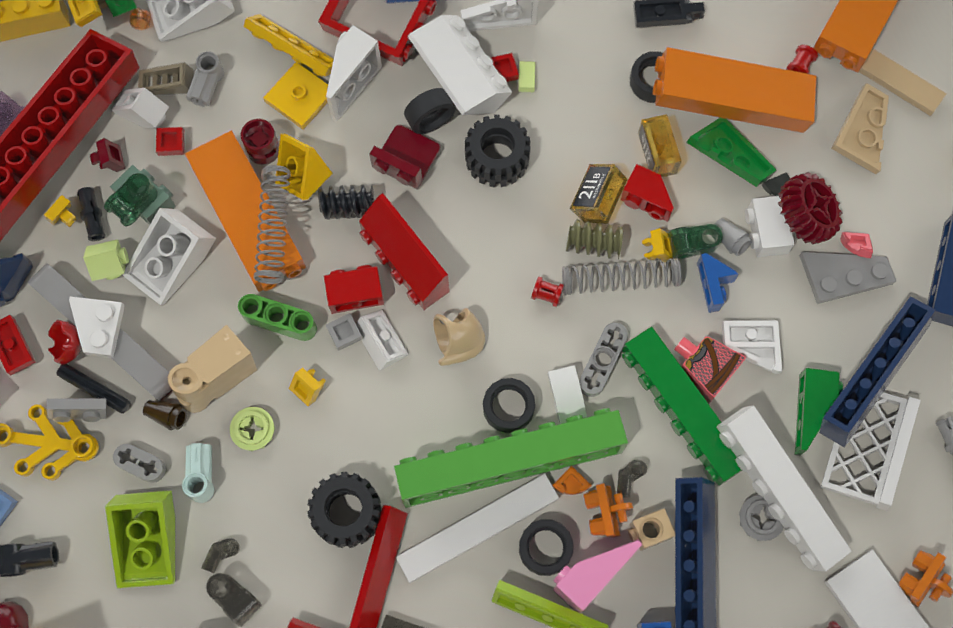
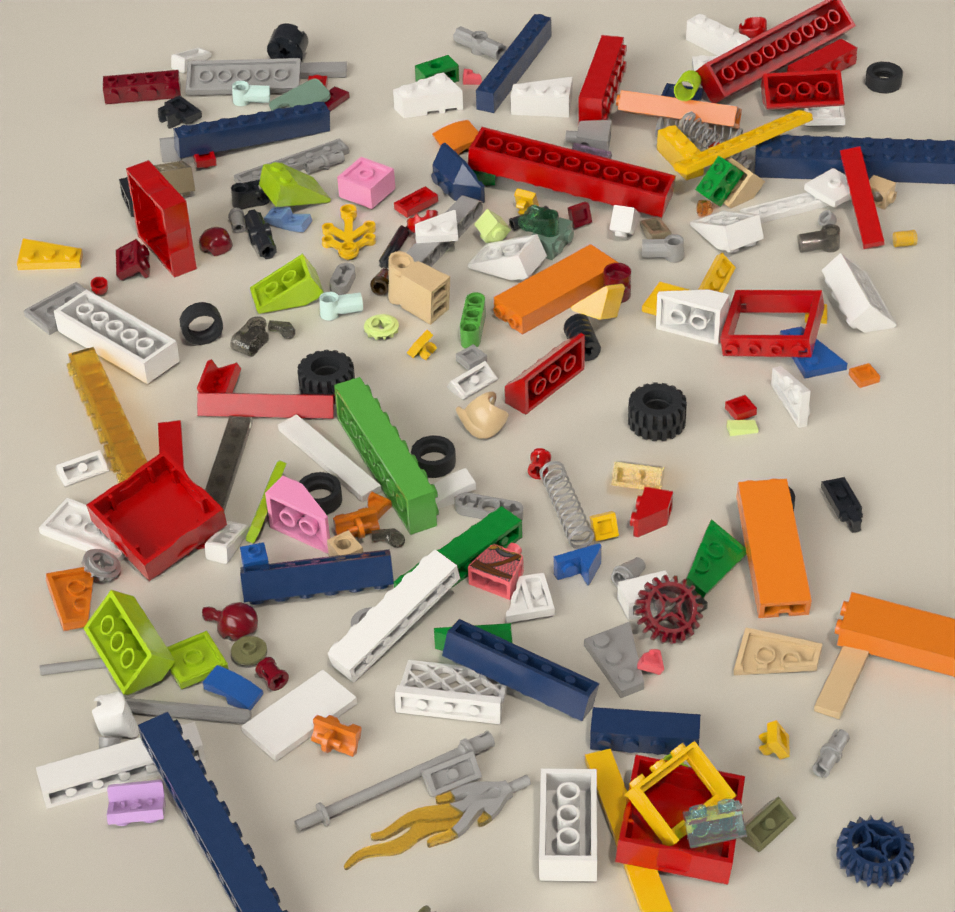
camera: 80 degrees right, 30 degrees down
(66, 409) = (374, 241): light grey plate -> none
(170, 141) = (603, 241): red plate -> none
(270, 273) = (498, 295): light grey piece -> none
(353, 289) = (507, 355): red brick -> none
(405, 156) = (632, 365): dark red bracket -> none
(429, 111) = (684, 358): black tyre -> none
(460, 65) = (725, 373): white slope -> none
(595, 239) = (595, 481): olive piece -> none
(659, 145) = (697, 507): clear yellow brick -> none
(689, 240) = (614, 546): clear green piece -> none
(804, 57) = (829, 600): red bush -> none

